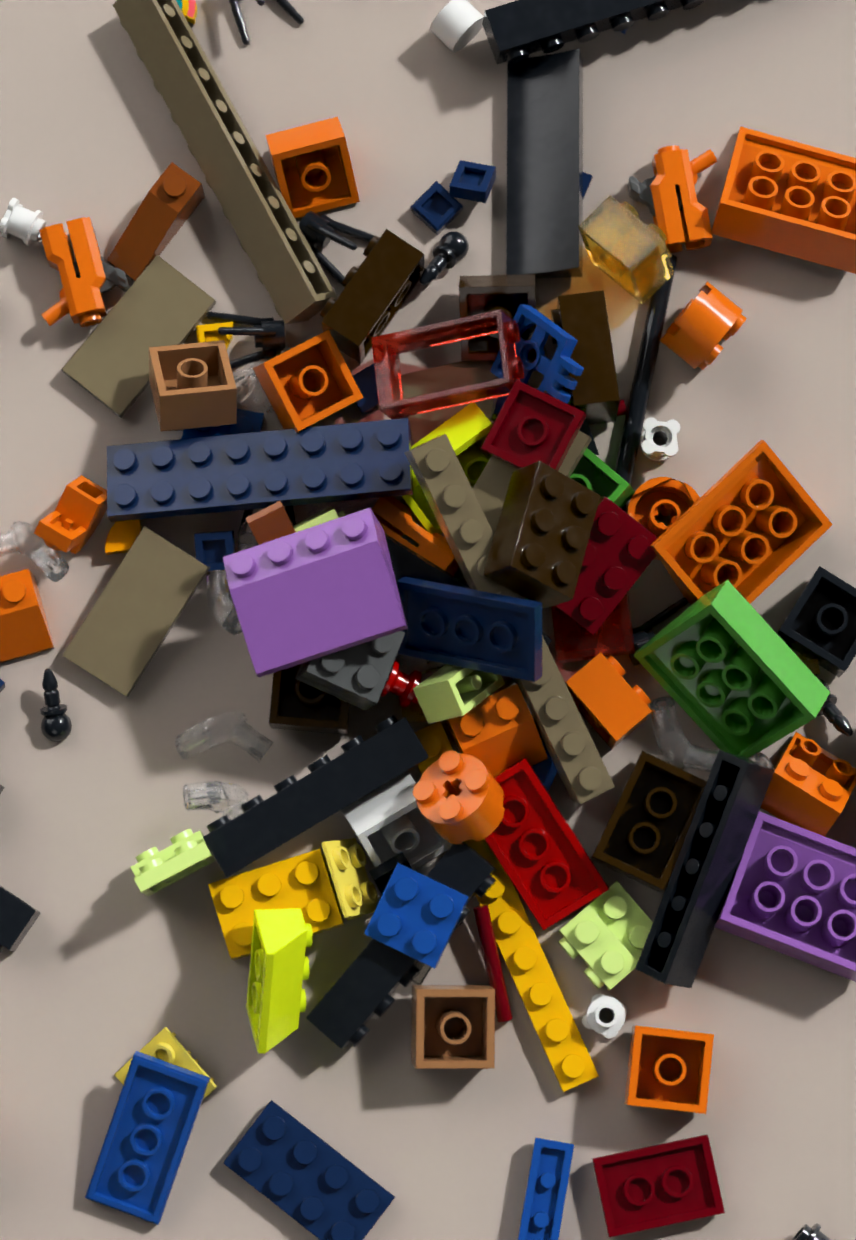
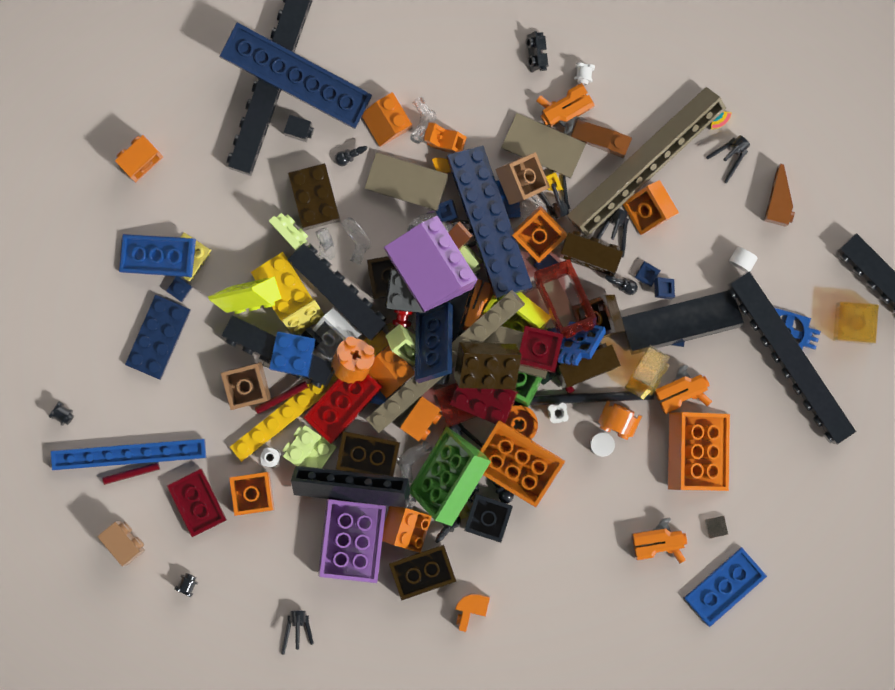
camera: 75 degrees right, 5 degrees up
(116, 796) = (314, 196): none -> dark brown brick
(224, 1112) = (179, 289): none -> dark blue plate
(740, 373) = (602, 444): none -> white piece
(791, 581) = (504, 495): none -> black bar

